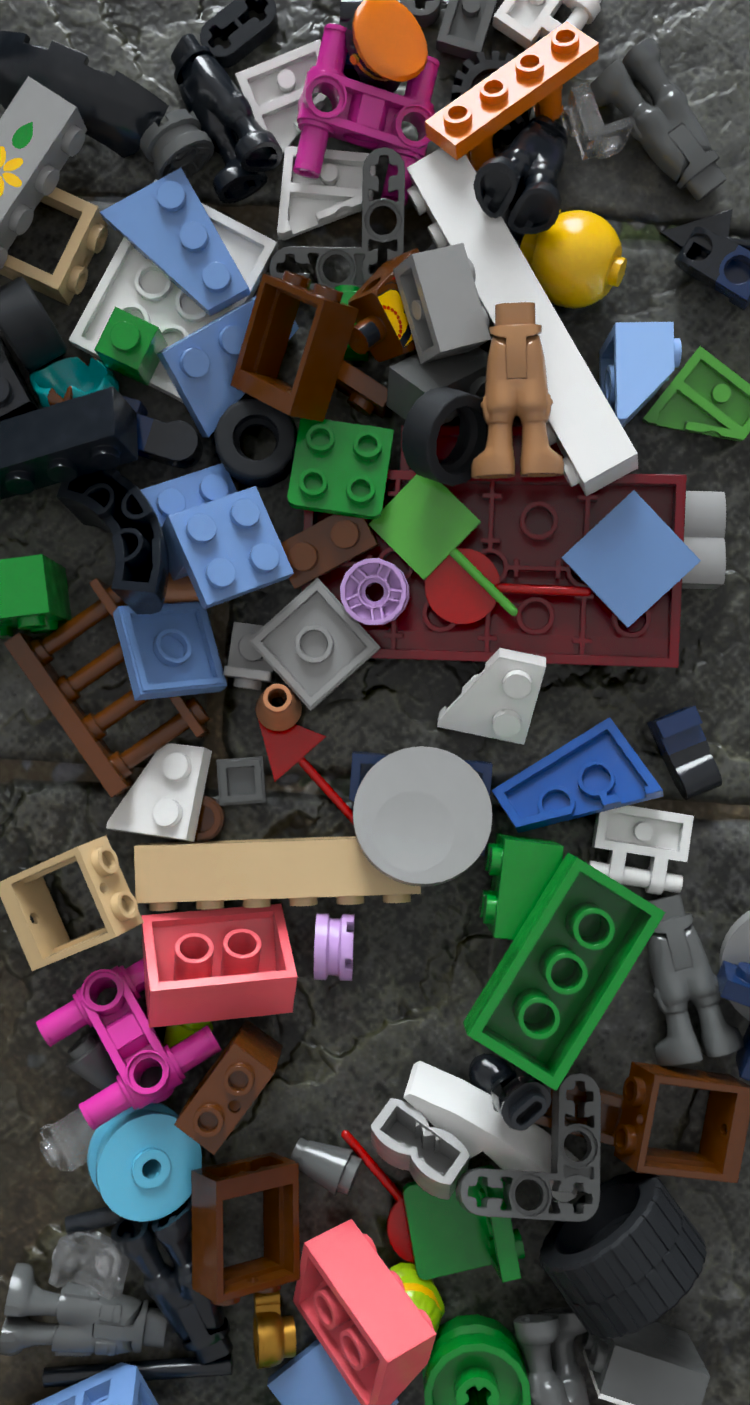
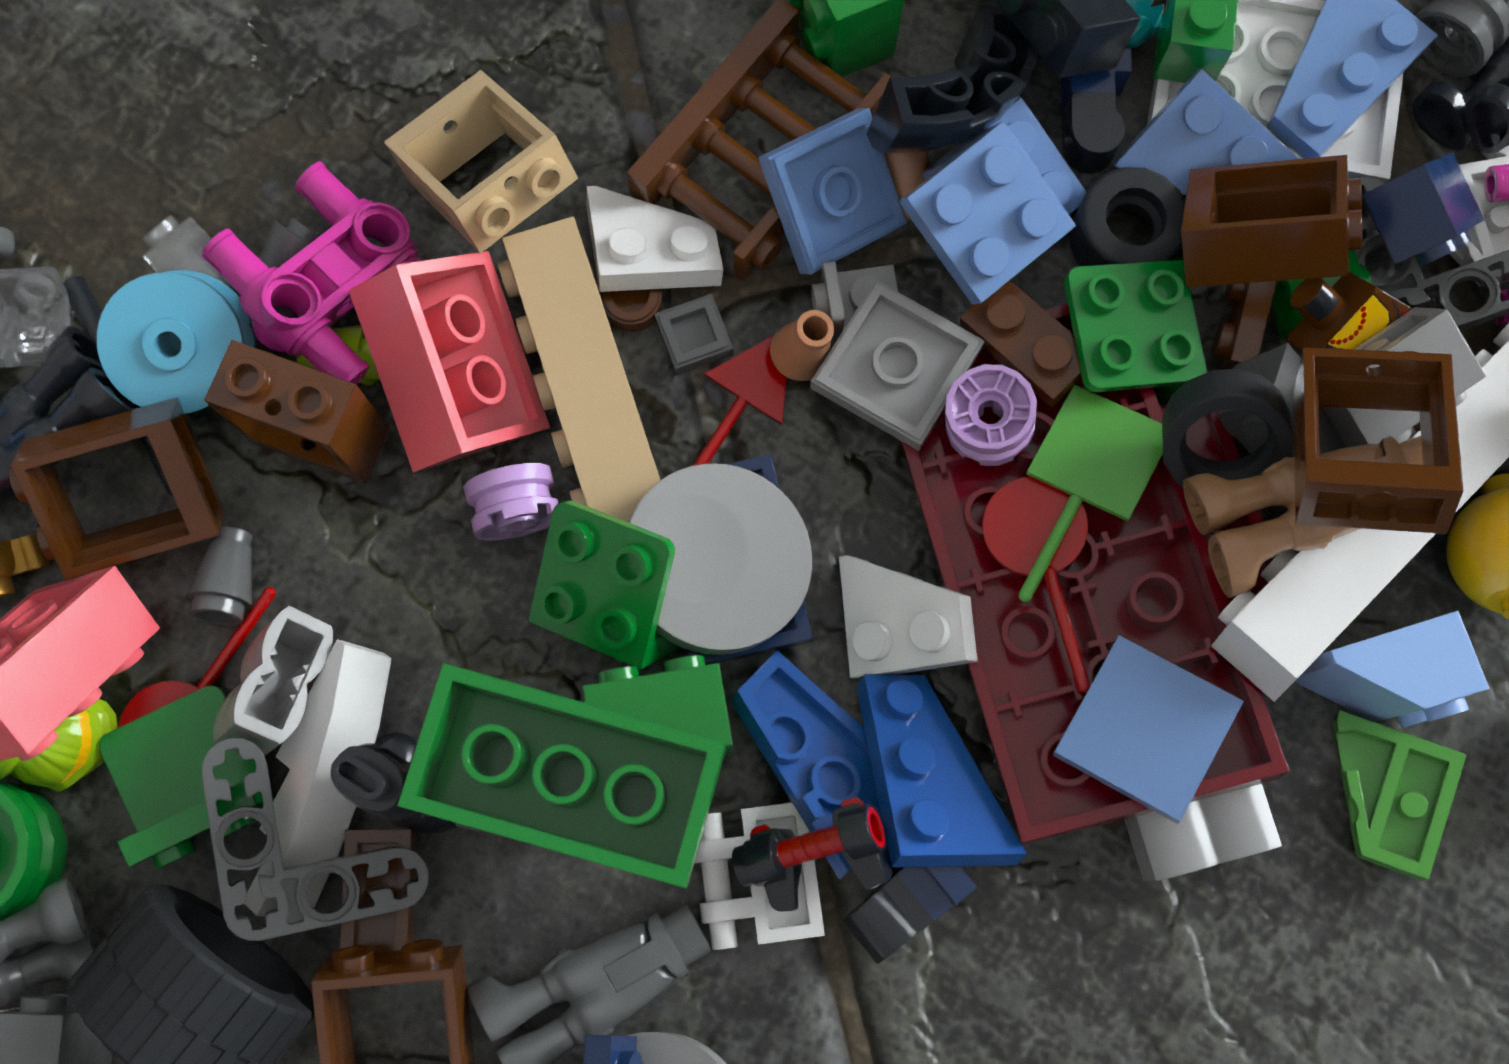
camera: 70 degrees right, 10 degrees down
(317, 232) = (1425, 211): none -> dark blue brick
(422, 902) = (604, 584): none -> green bracket
(541, 359) = (1377, 492): none -> reddish brown window
(613, 716) = (927, 782): none -> blue wing
(636, 832) = (777, 855): none -> black piece

